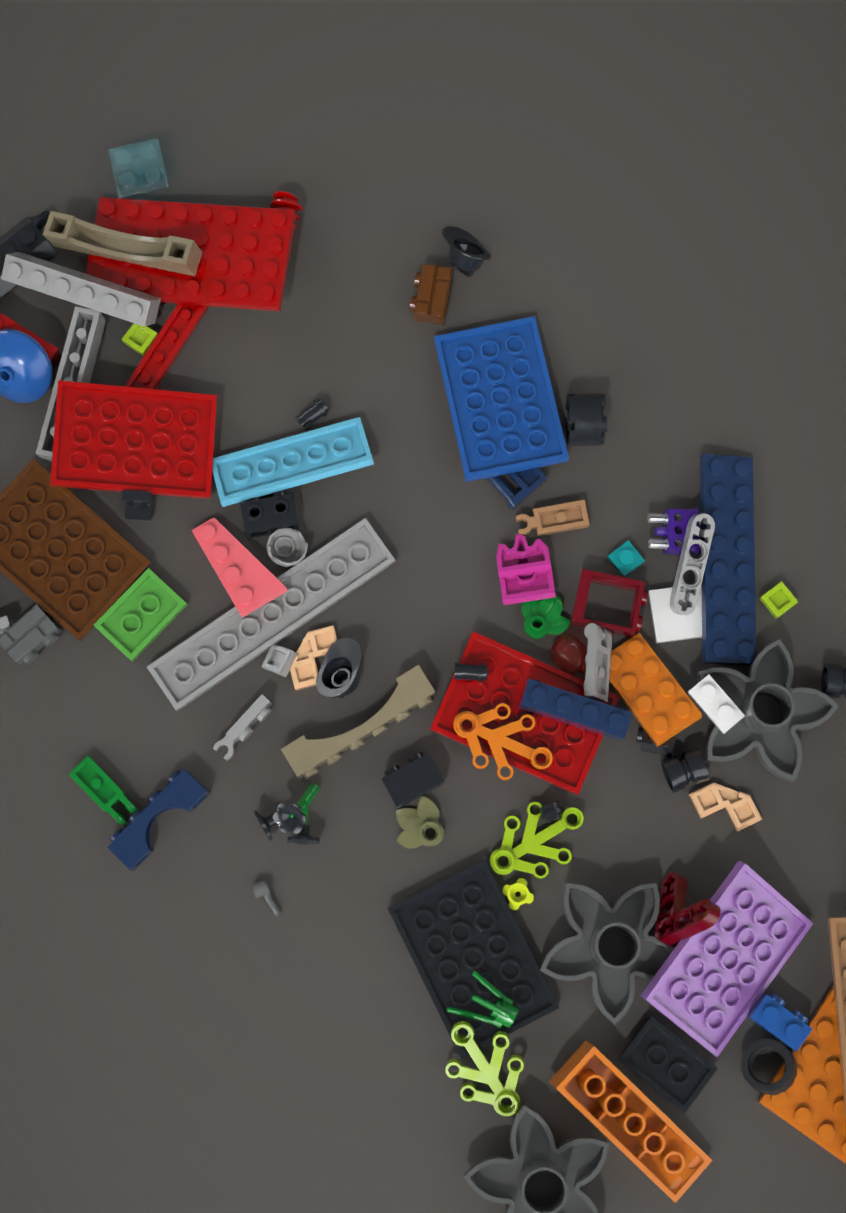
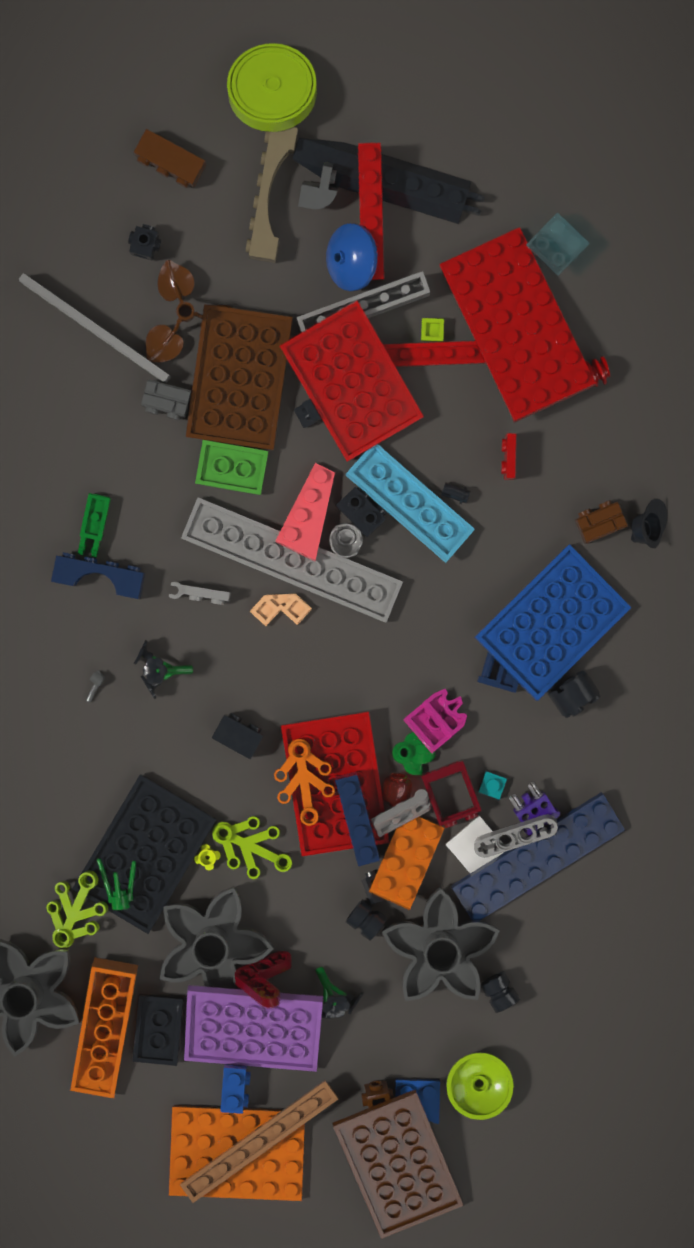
camera: 60 degrees right, 10 degrees up
(80, 288) = (438, 265): light grey brick -> none
(168, 253) = (490, 275): dark tan arch -> none
(279, 660) = (262, 587): light grey tile -> none
(308, 755) = (208, 651): dark tan arch -> none
(311, 338) = (509, 447): none -> red plate
(340, 669) = (282, 635): black piece -> none
(416, 823) = (211, 756): olive plate -> none
(470, 672) = (337, 729): black pin -> none
(551, 812) = (277, 846): black plate -> none
(555, 518) = (490, 717): medium nougat plate -> none
(716, 704) = (423, 914): white plate -> none
(737, 804) = (362, 952): light nougat tile -> none
(756, 851) = (334, 1005): none -> black plant
(778, 600) = (530, 911): lime plate -> none
(790, 1066) = (199, 1082): black tyre -> none

